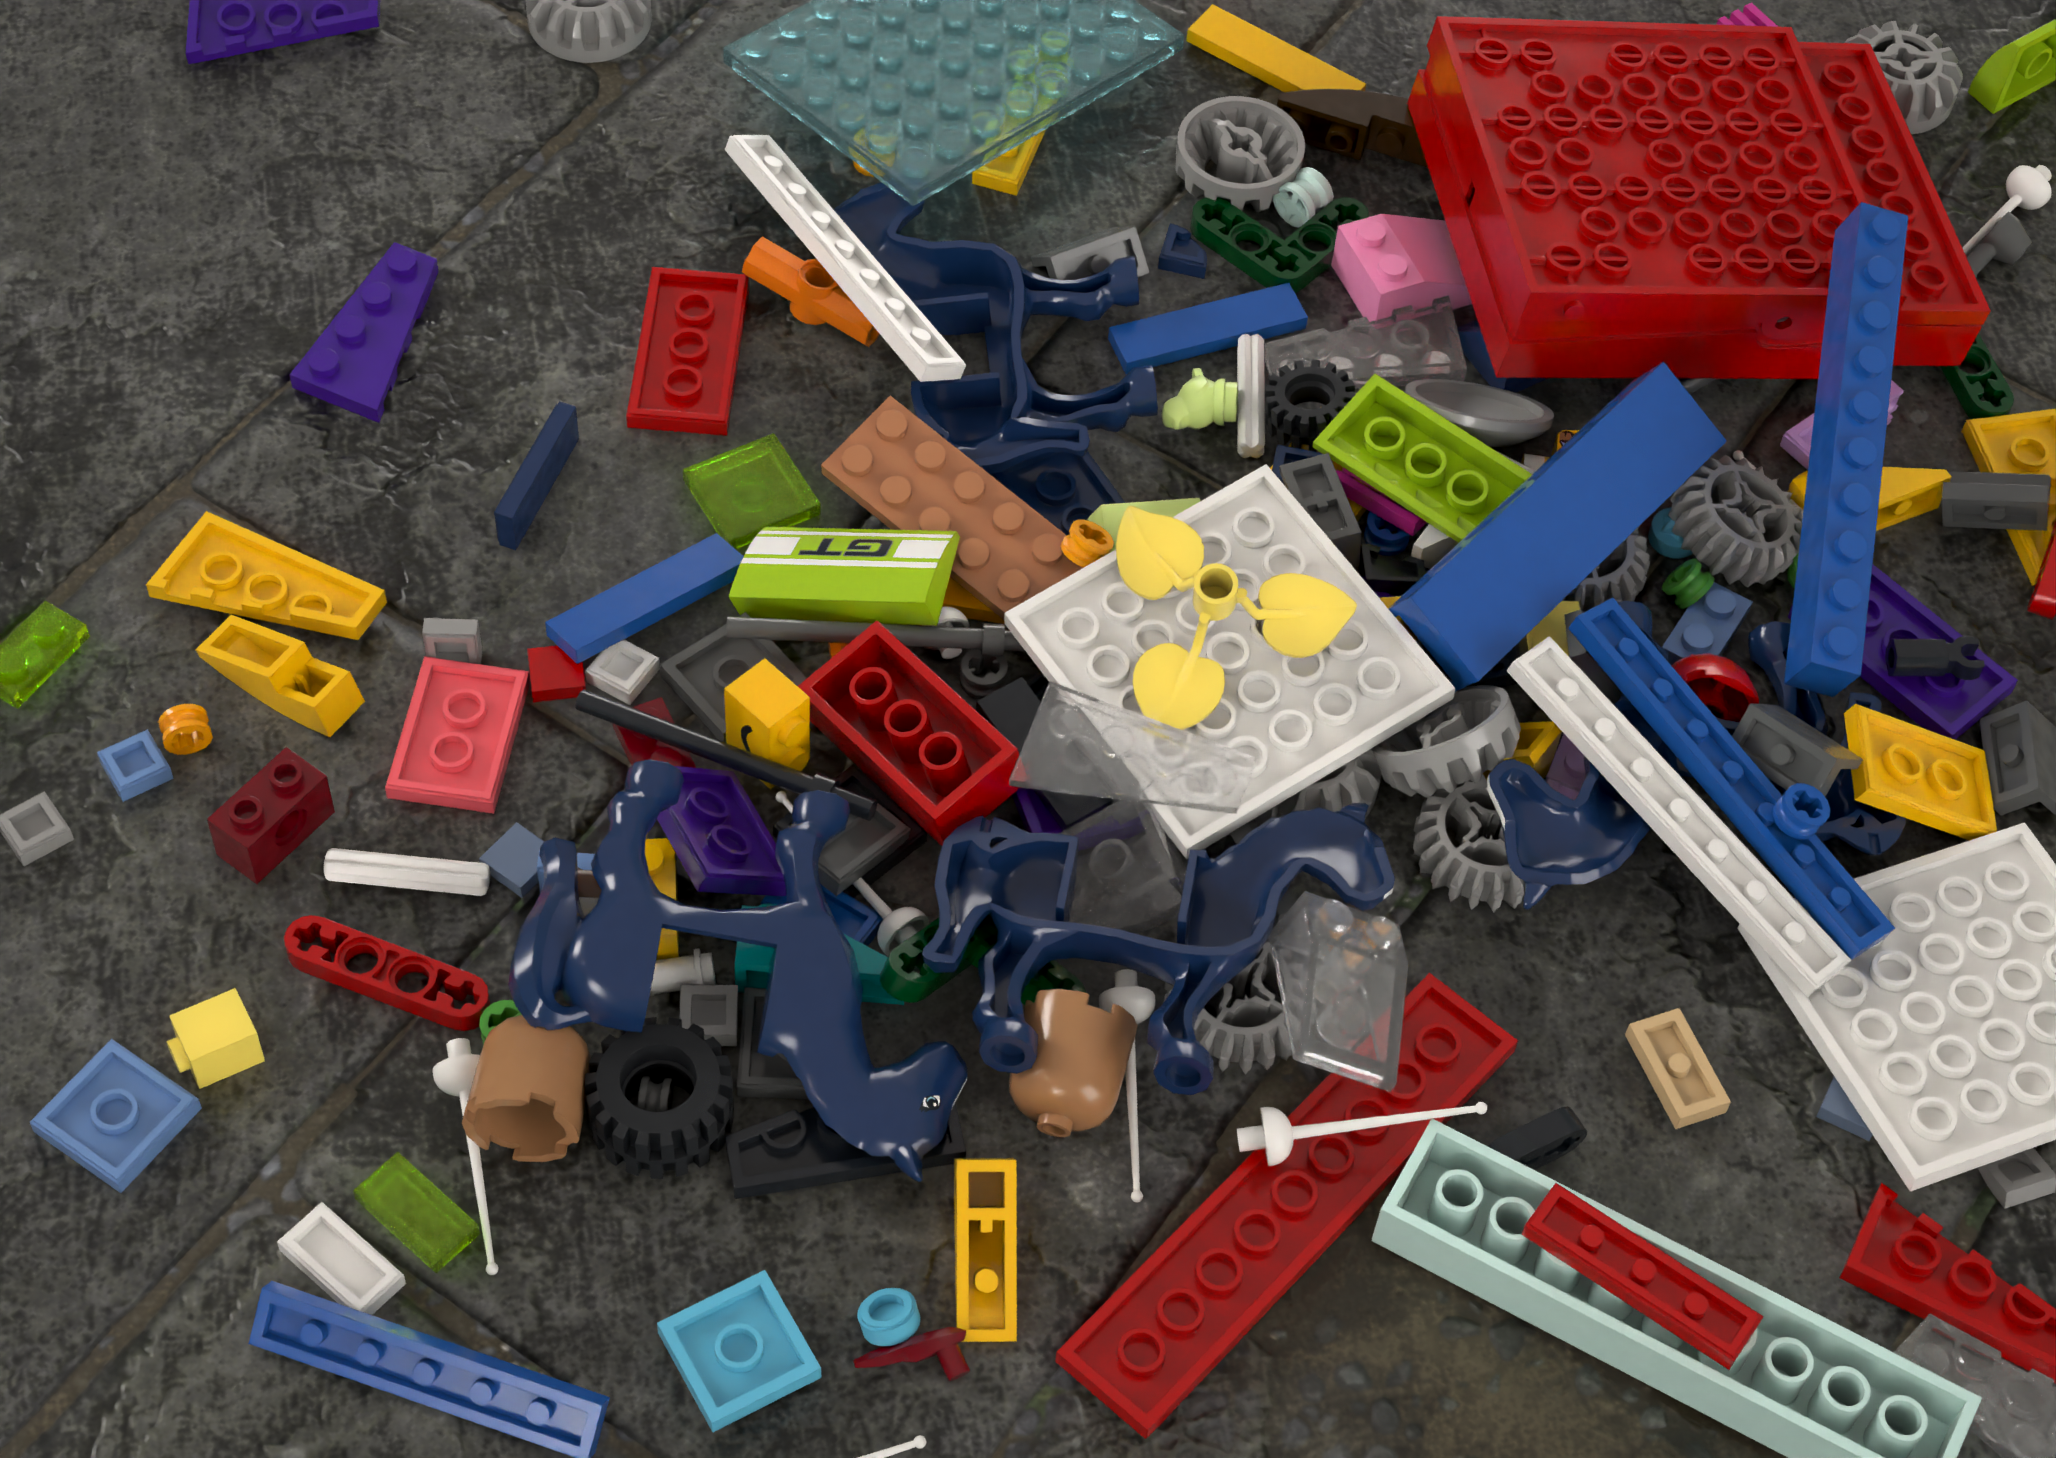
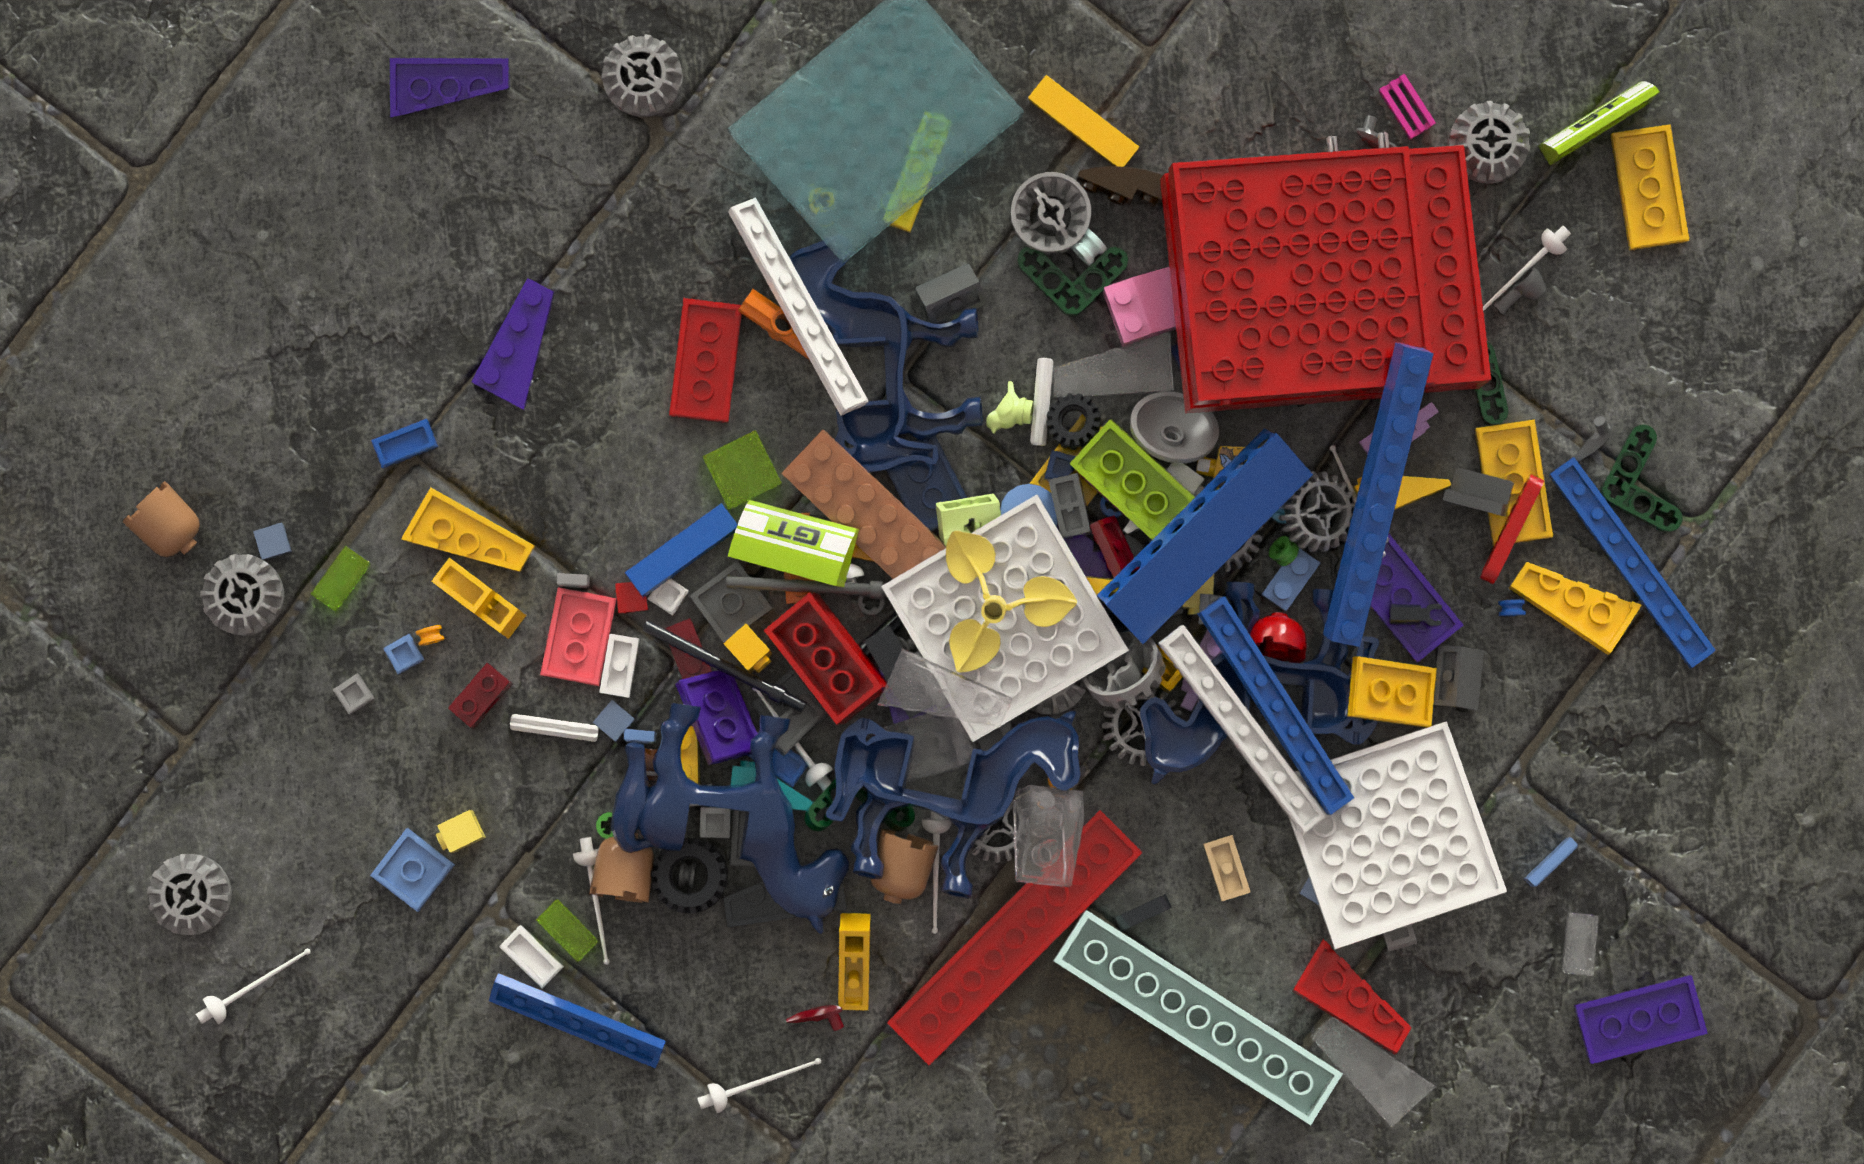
camera: 10 degrees right, 30 degrees up
(167, 463) = (404, 443): none -> blue tile
(383, 979) = (548, 786): red beam -> none
(531, 770) = (619, 665): none -> white plate
(536, 475) = (617, 461): dark blue tile -> none
(739, 1350) = (729, 1013): medium azure plate -> none
(889, 1317) = (804, 997): medium azure tile -> none
(1086, 542) = (929, 529): light orange bush -> none
(1182, 253) = (1010, 285): dark blue tile -> none
(1207, 327) = (1020, 347): blue tile -> none
(1277, 1134) = (1005, 912): white sword -> none
(1392, 550) = (1112, 544): none -> dark red plate
(1642, 1276) = (1181, 1004): red tile -> none
(1790, 749) = (1316, 687): dark grey panel -> none
(1801, 811) = (1313, 724): blue bush -> none

